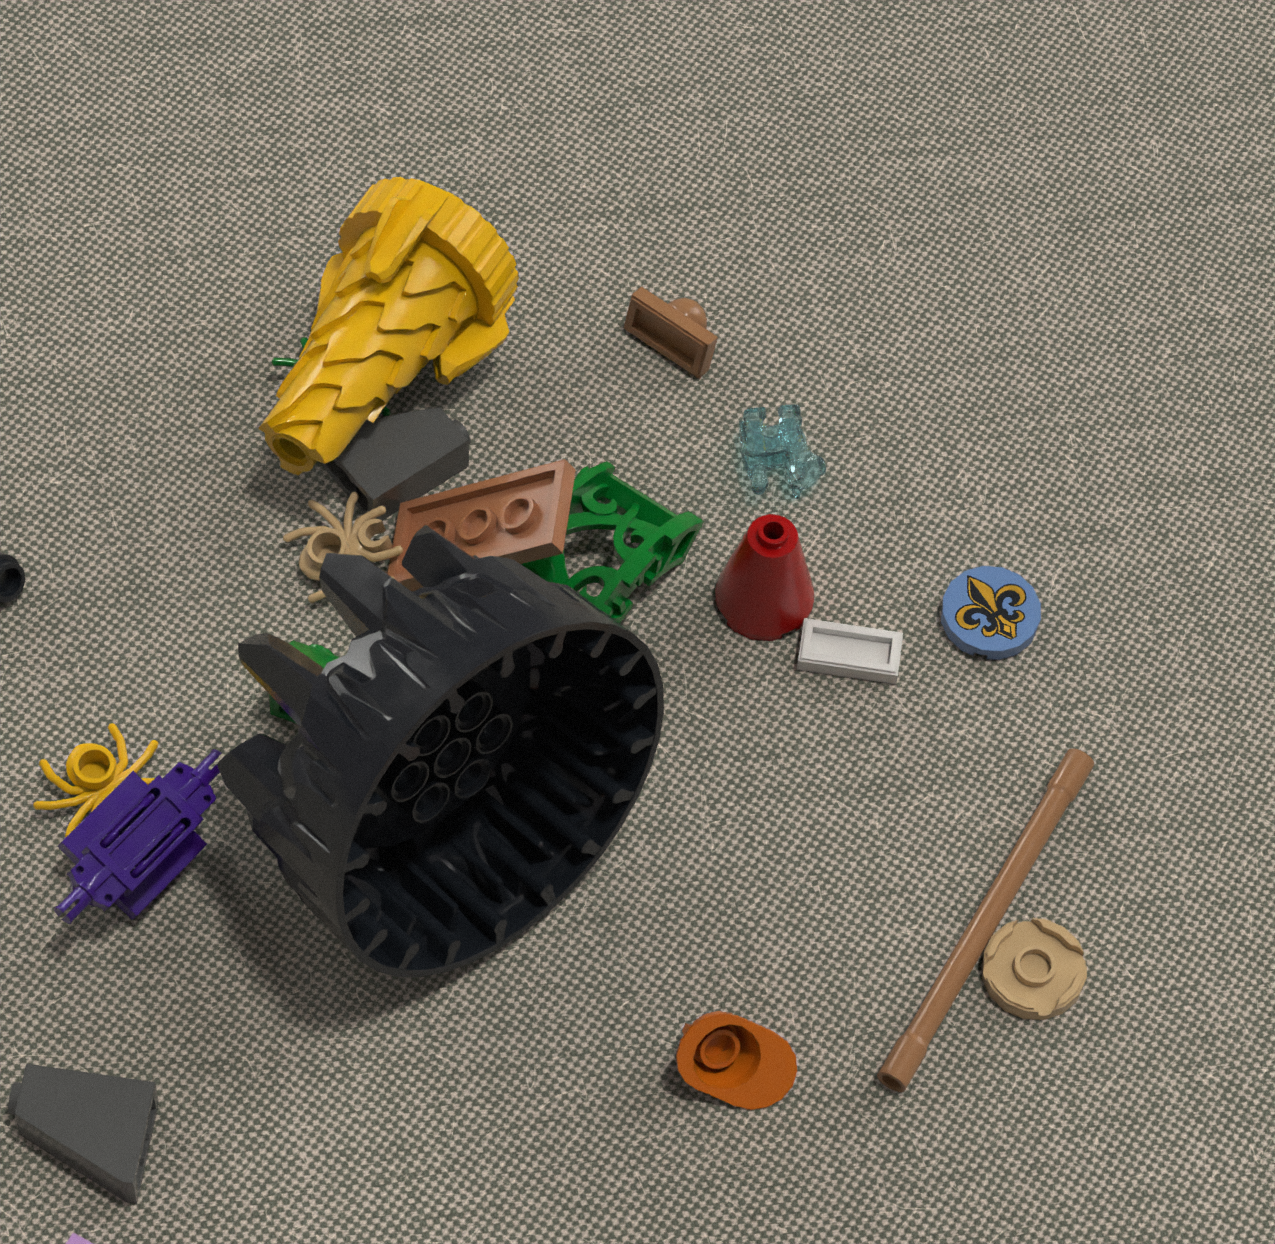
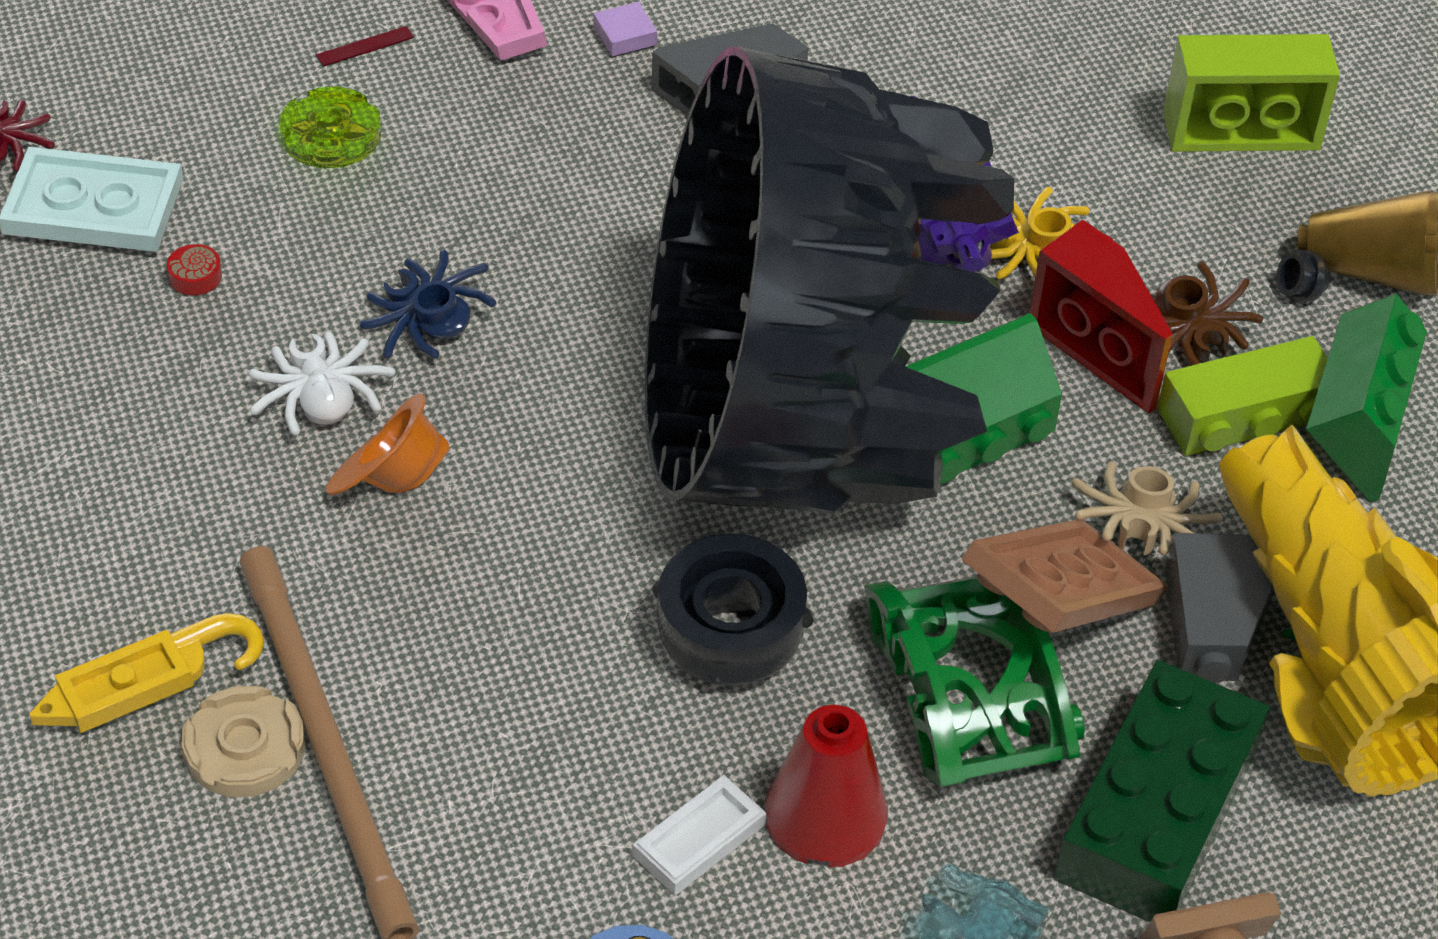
camera: 130 degrees right, 10 degrees down
(106, 629) = (1197, 318): none -> reddish brown animal
(129, 440) = (1367, 390): none -> green slope
(170, 543) = (1242, 395): none -> lime brick
(176, 664) = (1102, 313): none -> red slope
(552, 1162) = (427, 305): none -> dark blue animal
(593, 404) = (1161, 793): none -> dark green brick
(700, 1171) = (319, 381): none -> white animal
(711, 703) = (731, 577): none -> black piece
(1050, 1066) = (140, 673): none -> yellow plate

